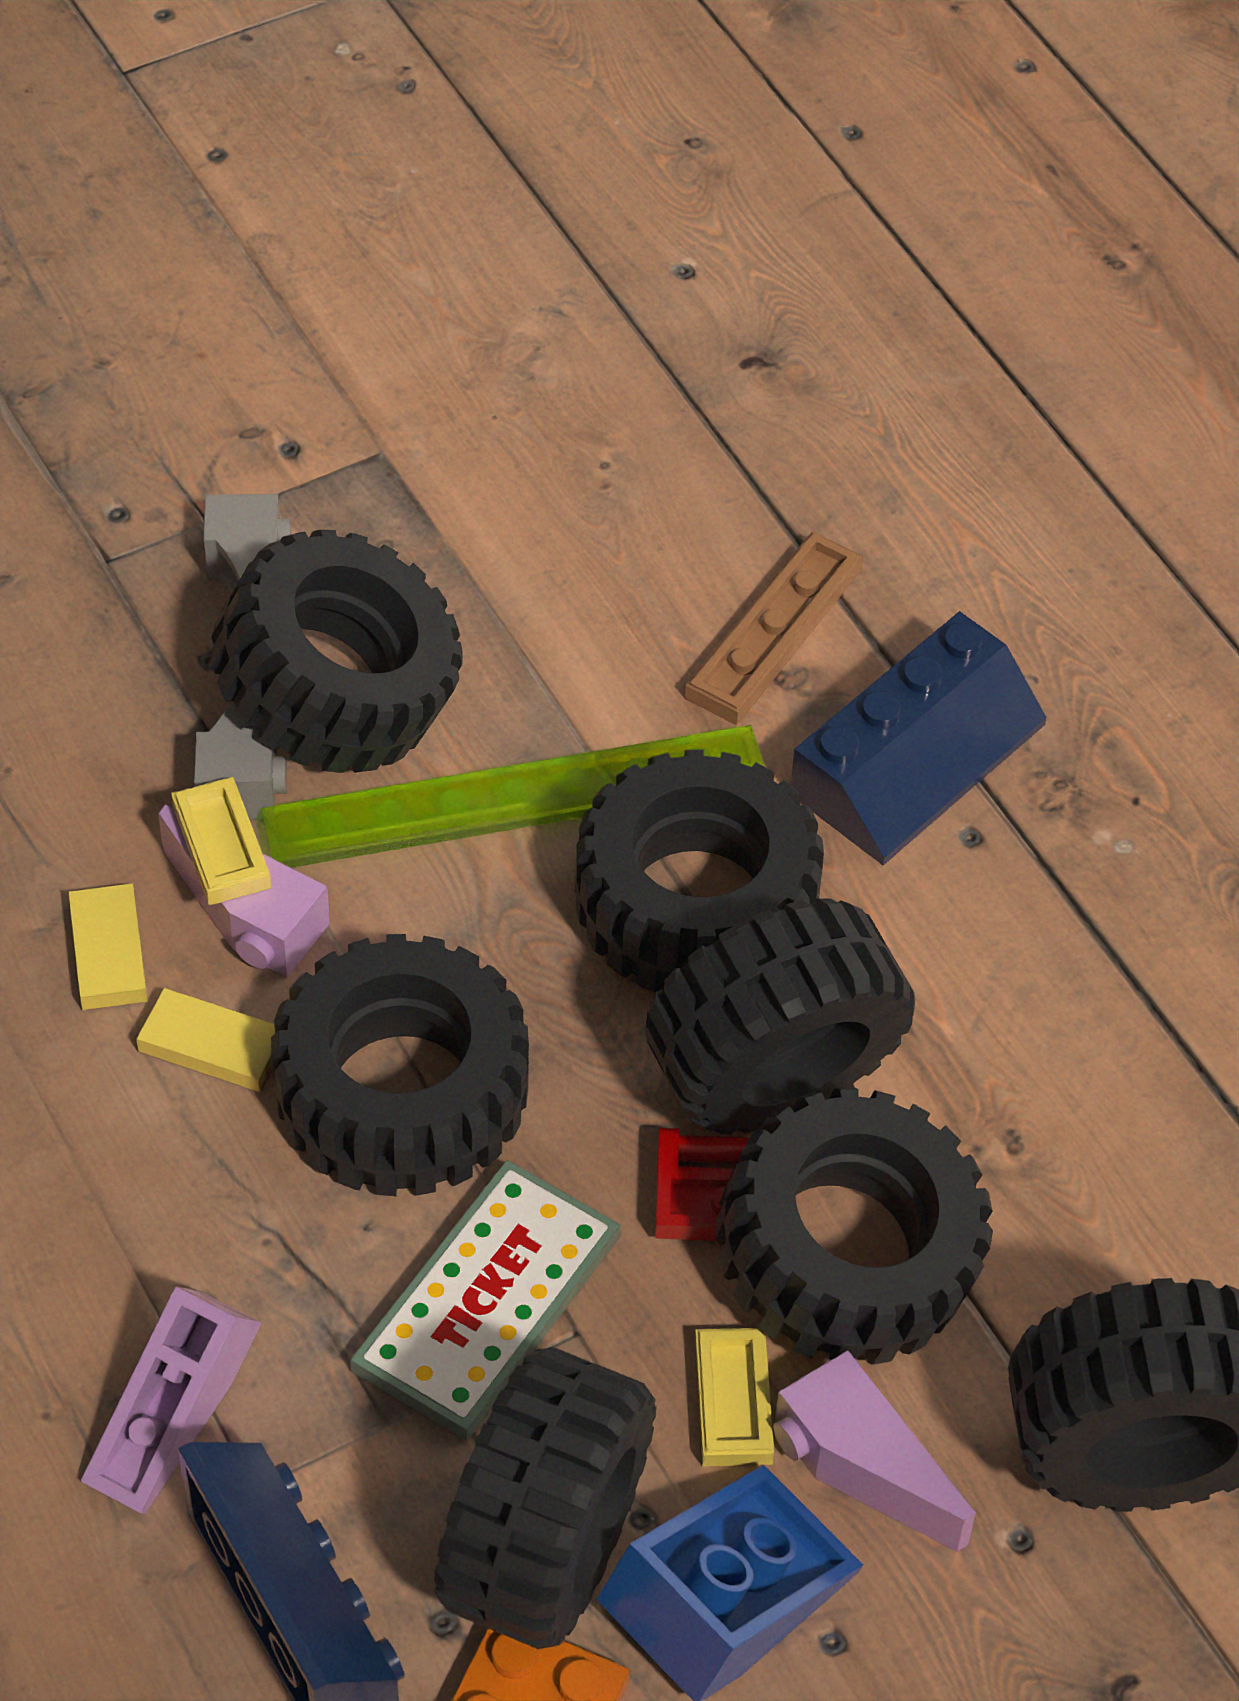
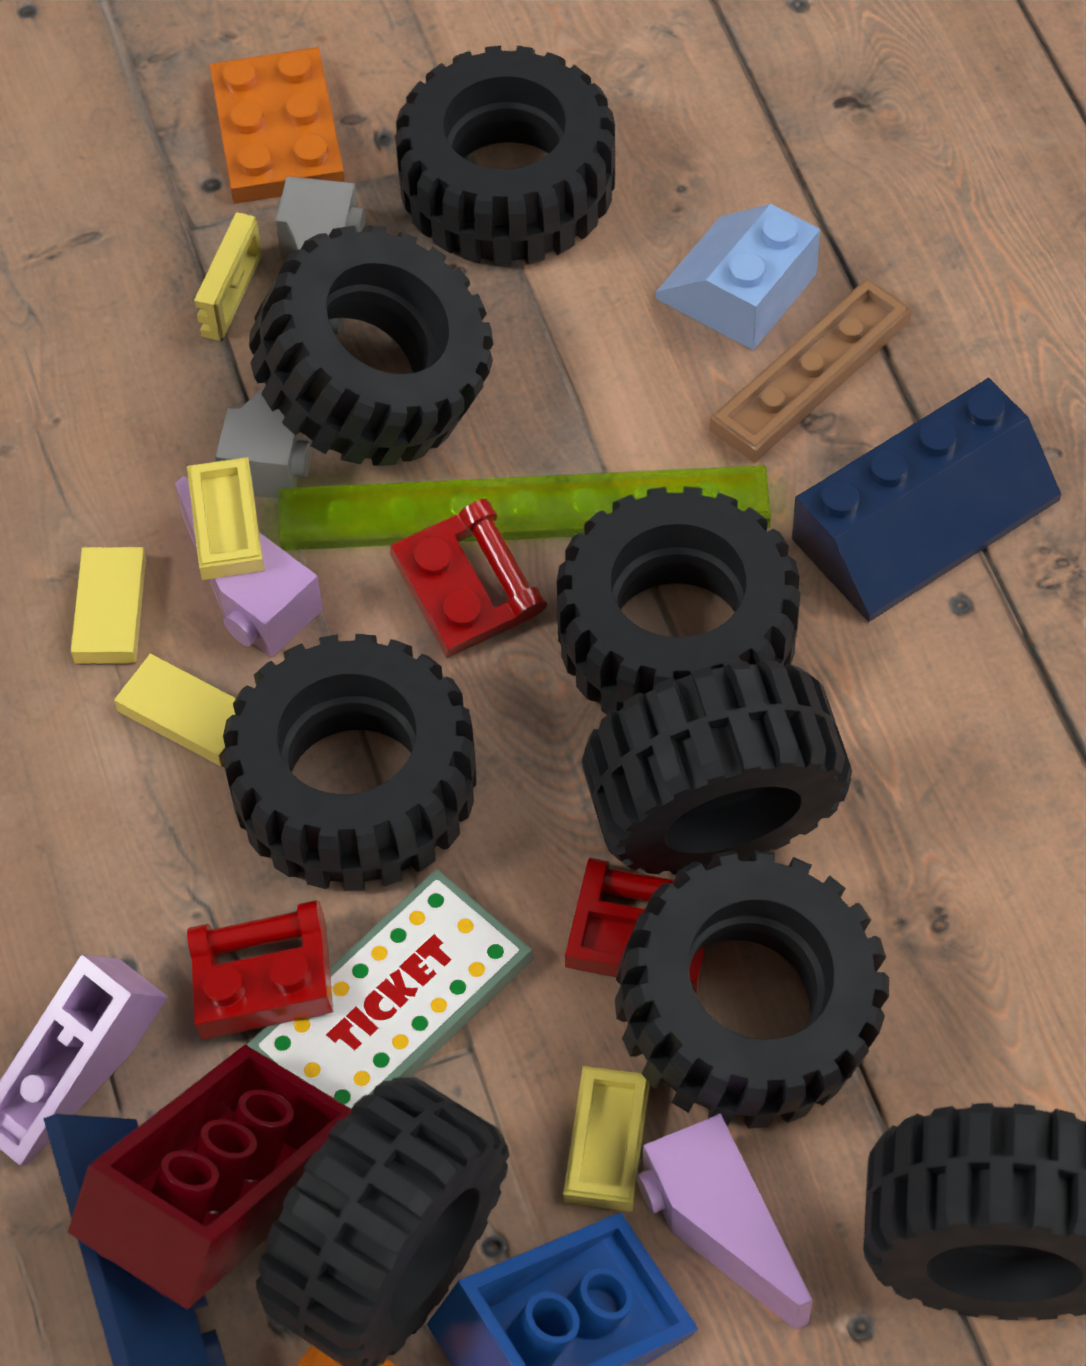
camera: 15 degrees right, 5 degrees up
(162, 603) = (228, 276): none -> light yellow tile
(173, 444) = (275, 122): none -> orange plate
(356, 1299) = (262, 987): none -> red plate
(360, 1480) = (204, 1175): none -> dark red brick
(416, 395) = (504, 100): none -> black tyre
(460, 885) = (449, 587): none -> red plate
(689, 539) = (745, 272): none -> light blue slope

